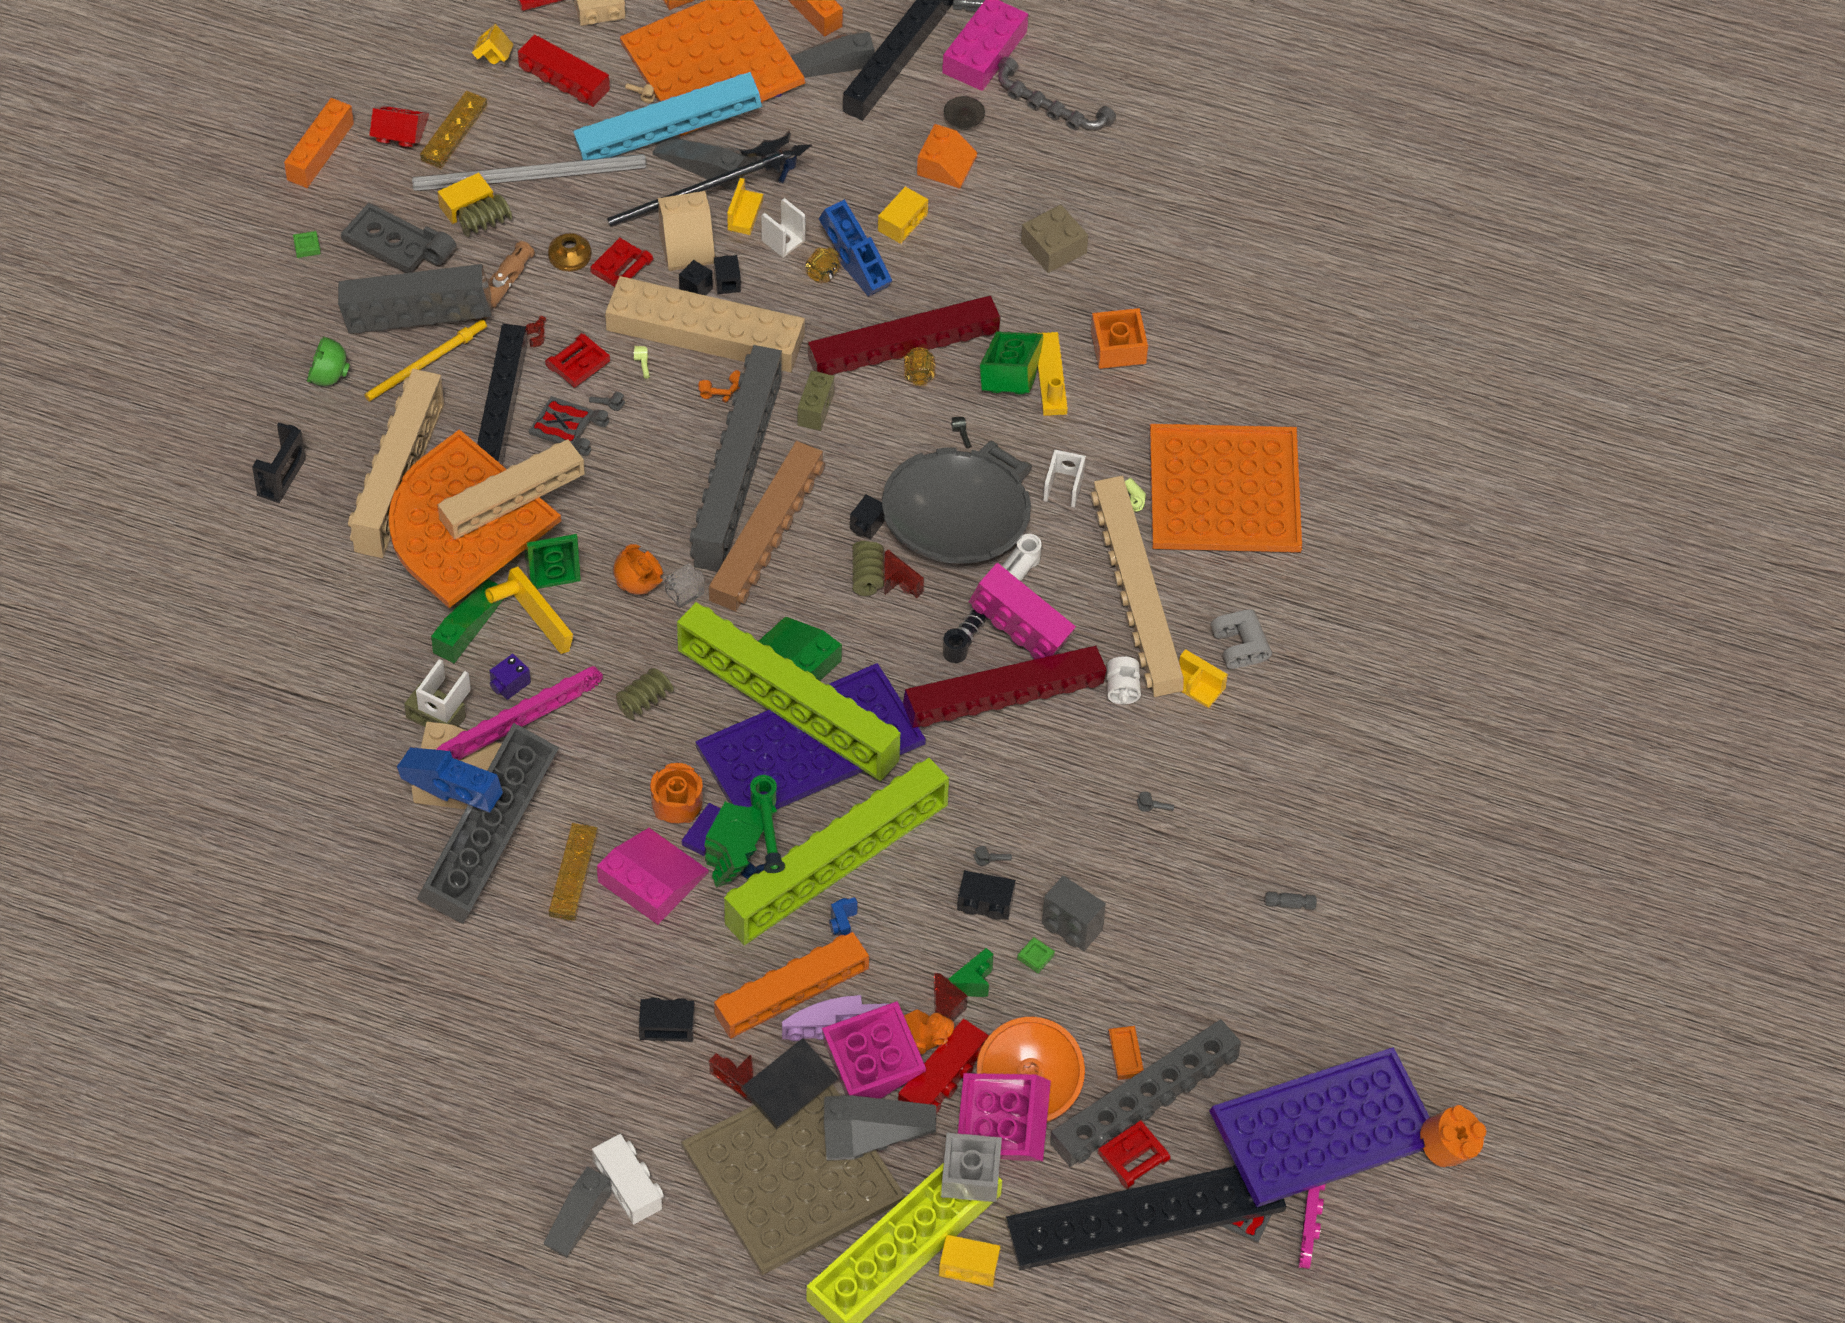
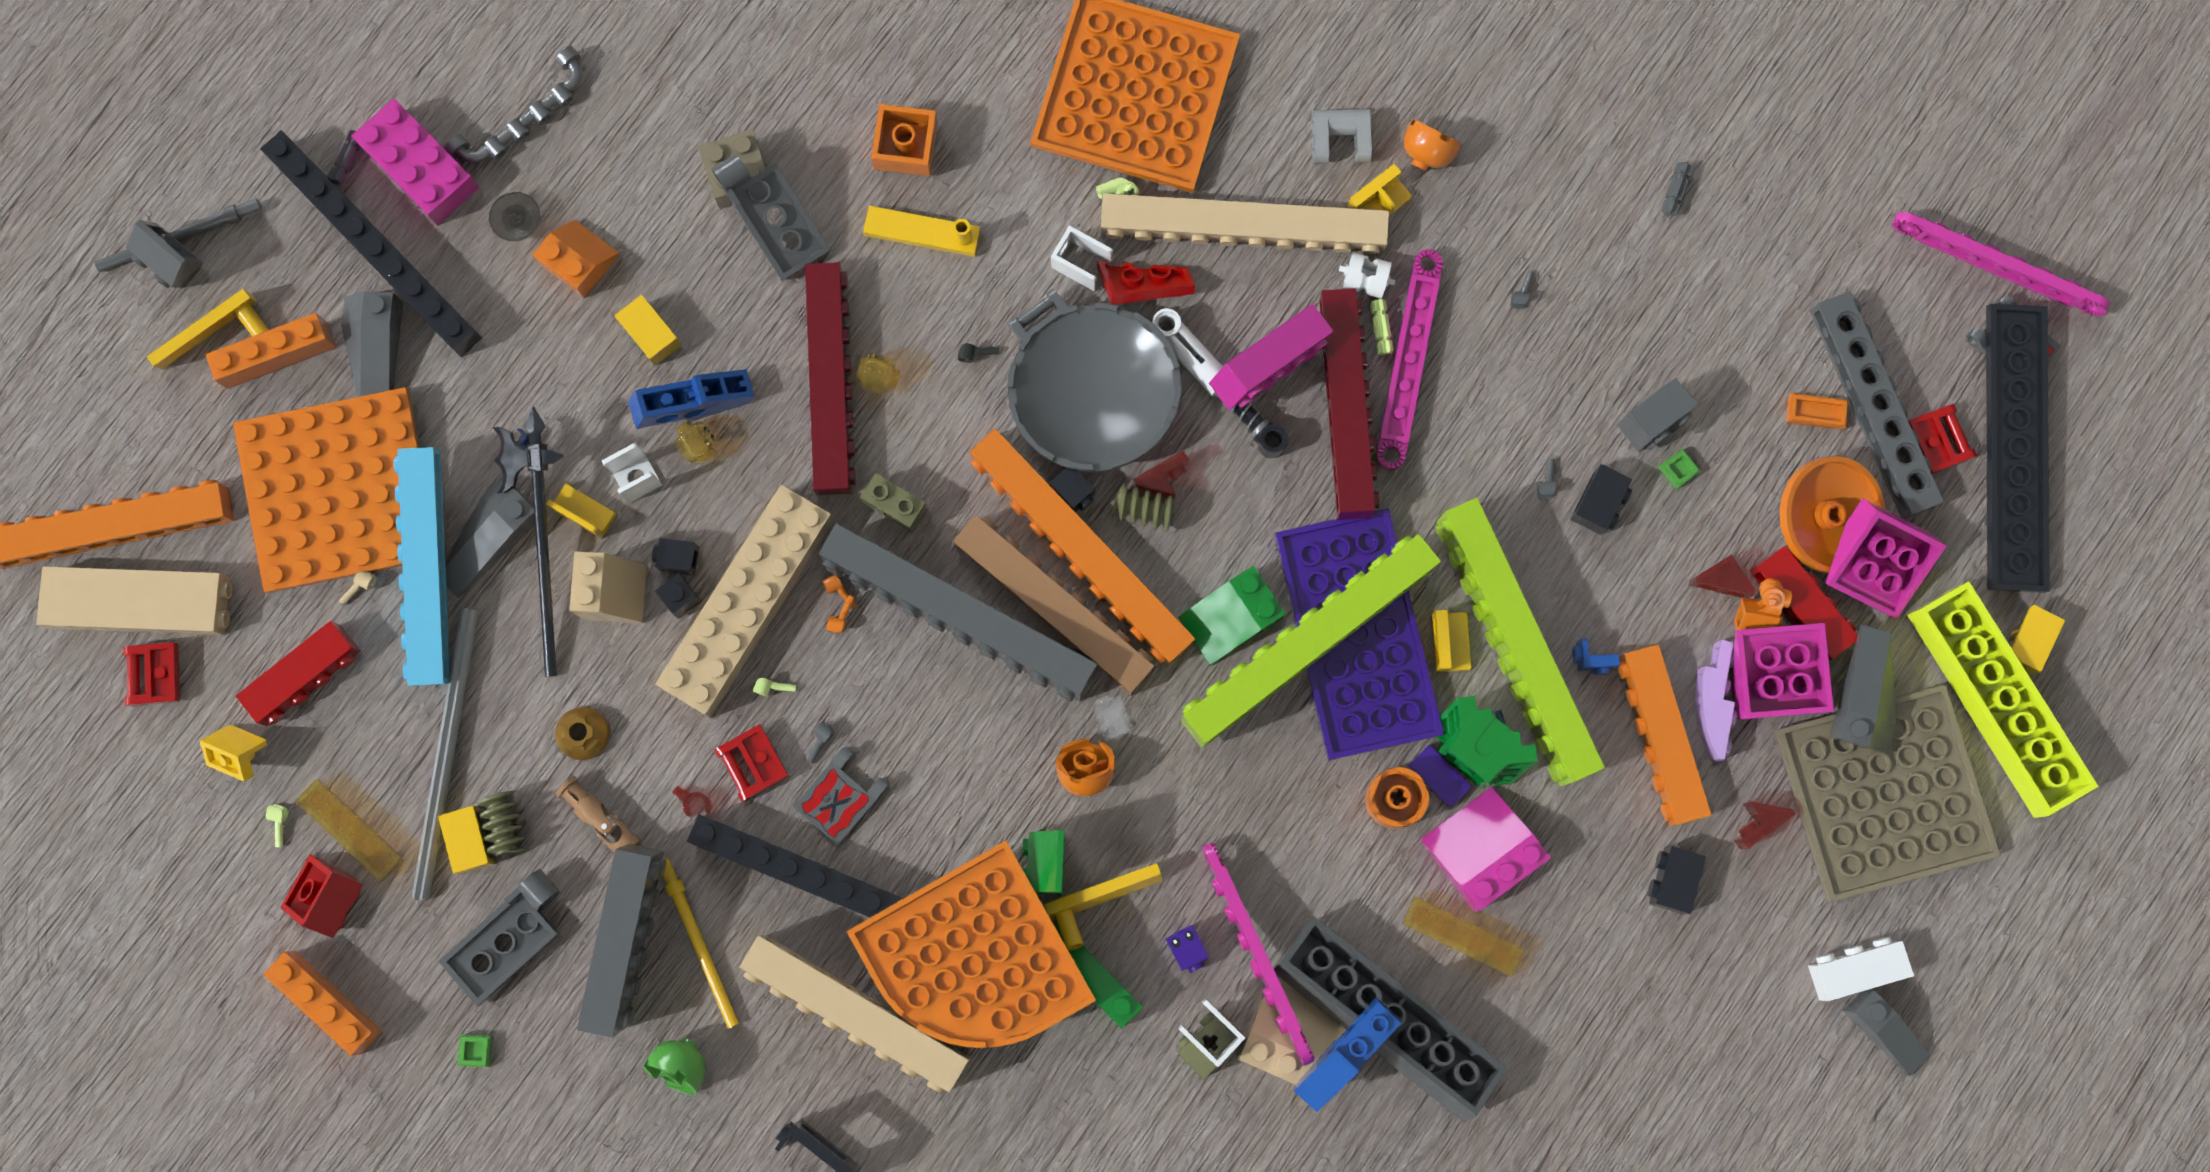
camera: 75 degrees left, 25 degrees up
(453, 87) = (279, 815): none -> yellowish green hand
(510, 489) = (962, 891): tan brick -> none
(617, 258) = (612, 682): red plate -> none
(642, 691) = (1250, 800): olive piece -> none
(764, 803) = (1546, 716): green piece -> none
(789, 1083) = (1797, 770): black tile -> none
(819, 535) = (1081, 547): none -> orange brick
(821, 808) = (1451, 641): none -> yellow panel
(971, 976) = (1699, 549): green slope -> none
(971, 1167) = (1968, 609): light grey brick -> none
(1011, 362) = (900, 267): green slope -> none
(1028, 246) = (754, 198): none -> dark grey hinge
(1059, 527) = (1140, 284): none -> red wing
(1062, 730) = (1409, 359): none -> dark pink plate
(1083, 706) = (1381, 327): none -> yellowish green axle
(1255, 700) = (1429, 146): none -> orange cylinder
(1322, 1126) = (1977, 239): dark purple plate -> none
(1452, 1136) = (2006, 118): orange brick -> none

